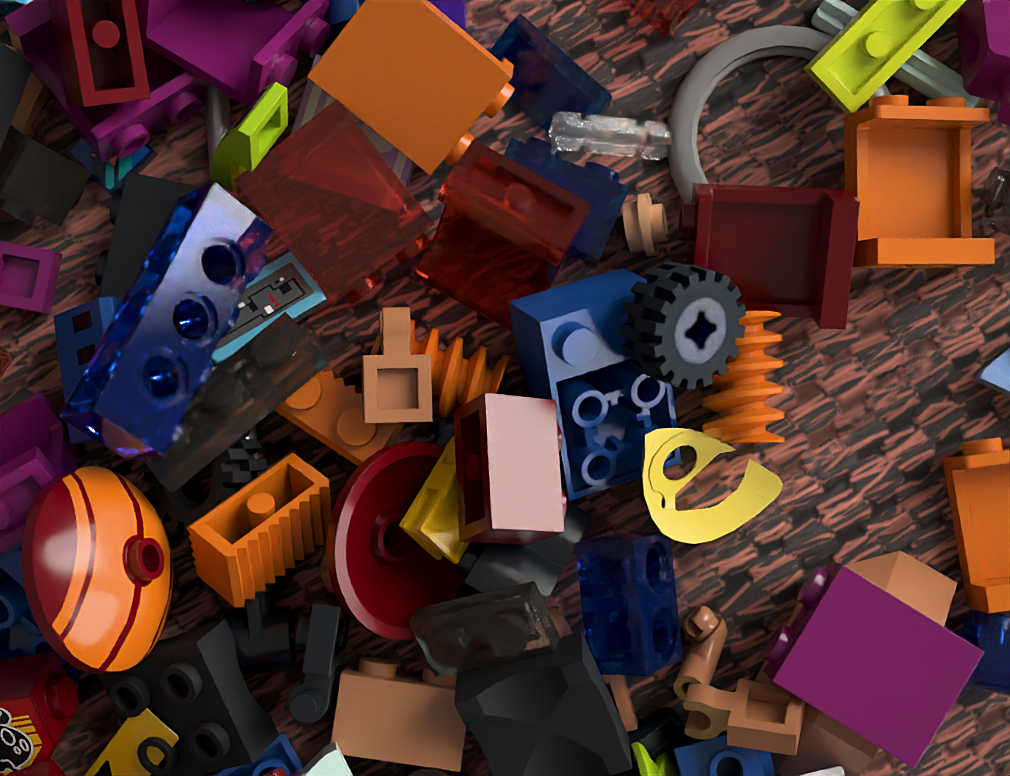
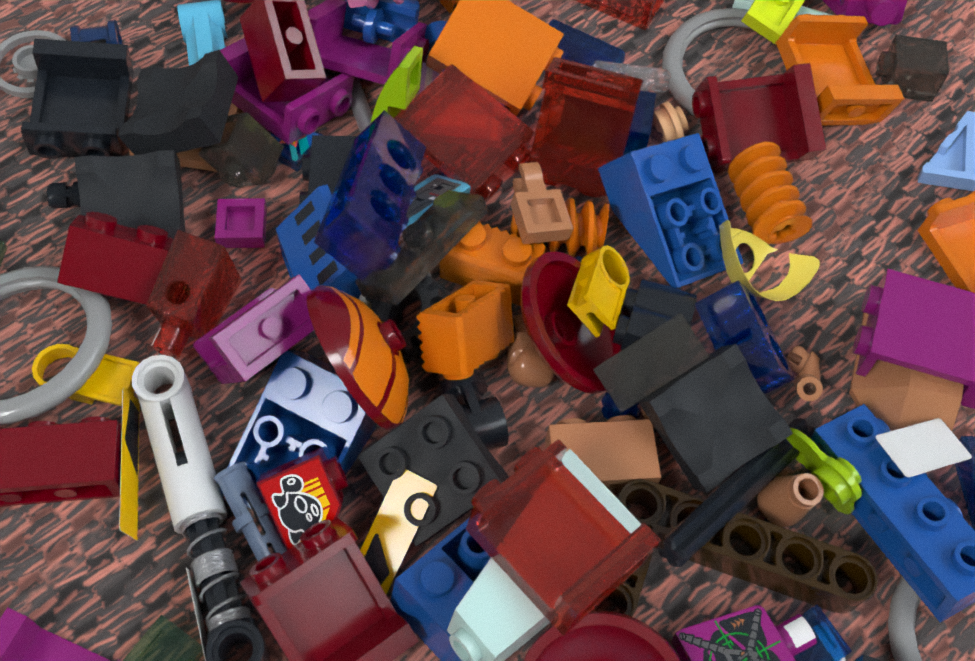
camera: 20 degrees left, 25 degrees down
(323, 639) = (530, 403): black plate -> none
(508, 470) = (636, 251): brick -> none
(682, 324) = (724, 145): black wheel -> none
(754, 715) = (871, 385): nougat plate -> none

